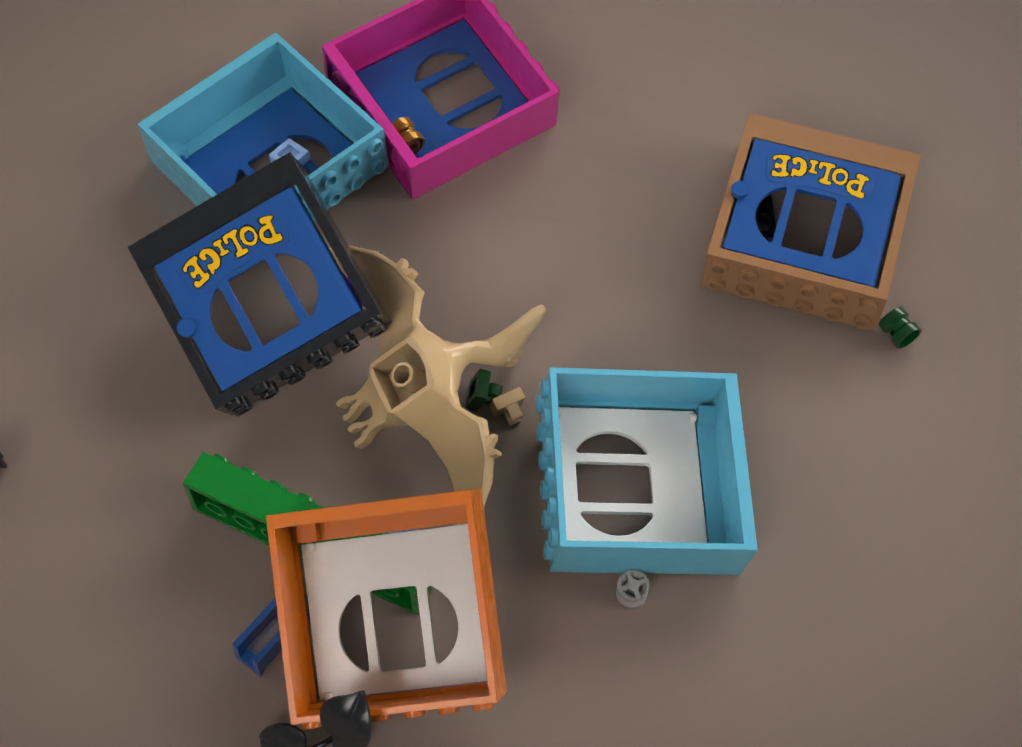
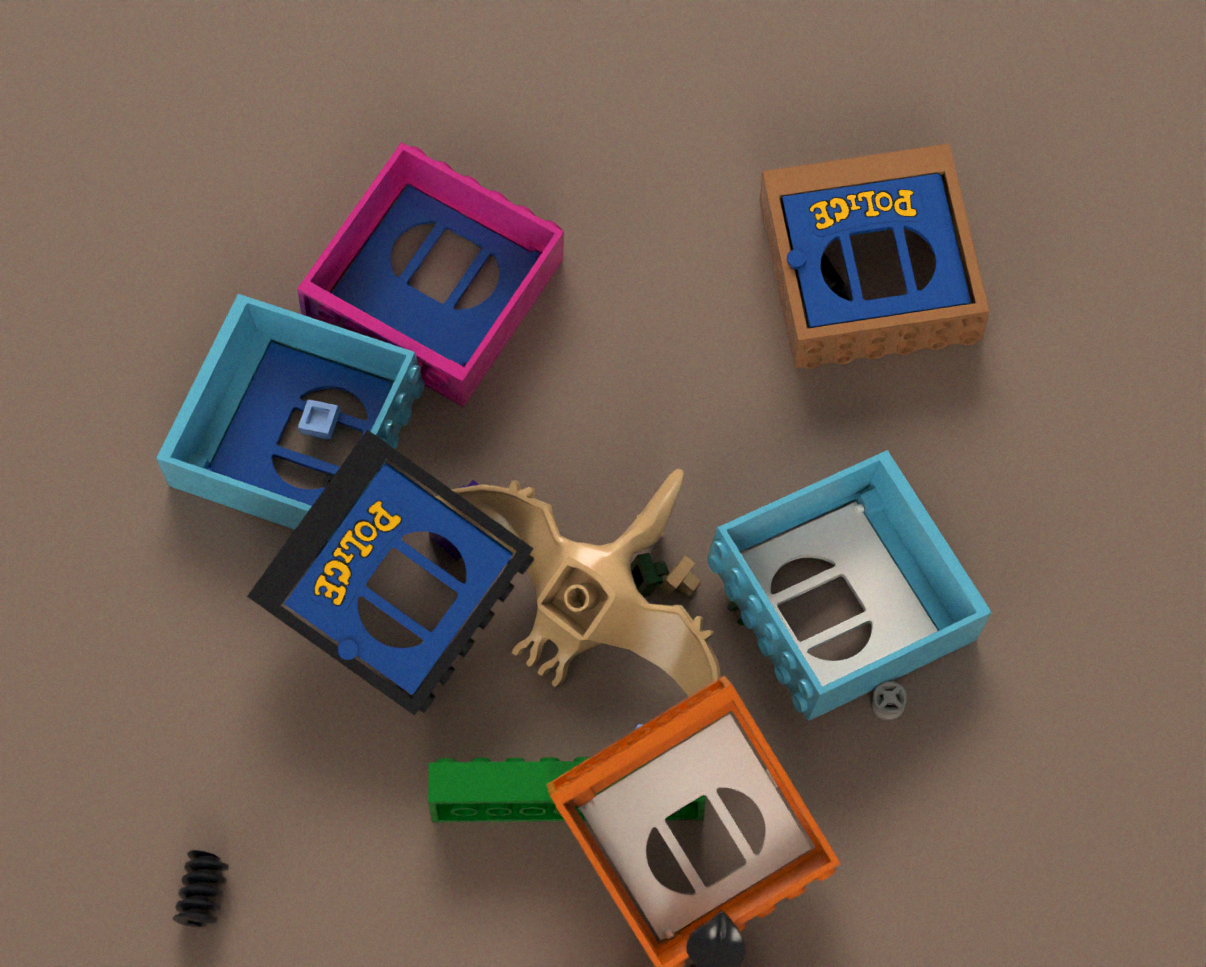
camera: 25 degrees left, 5 degrees up
(260, 640) = (580, 903): blue window -> none
(407, 131) = (423, 336): pearl gold wheel -> none
(900, 327) = (1006, 327): dark green wheel -> none

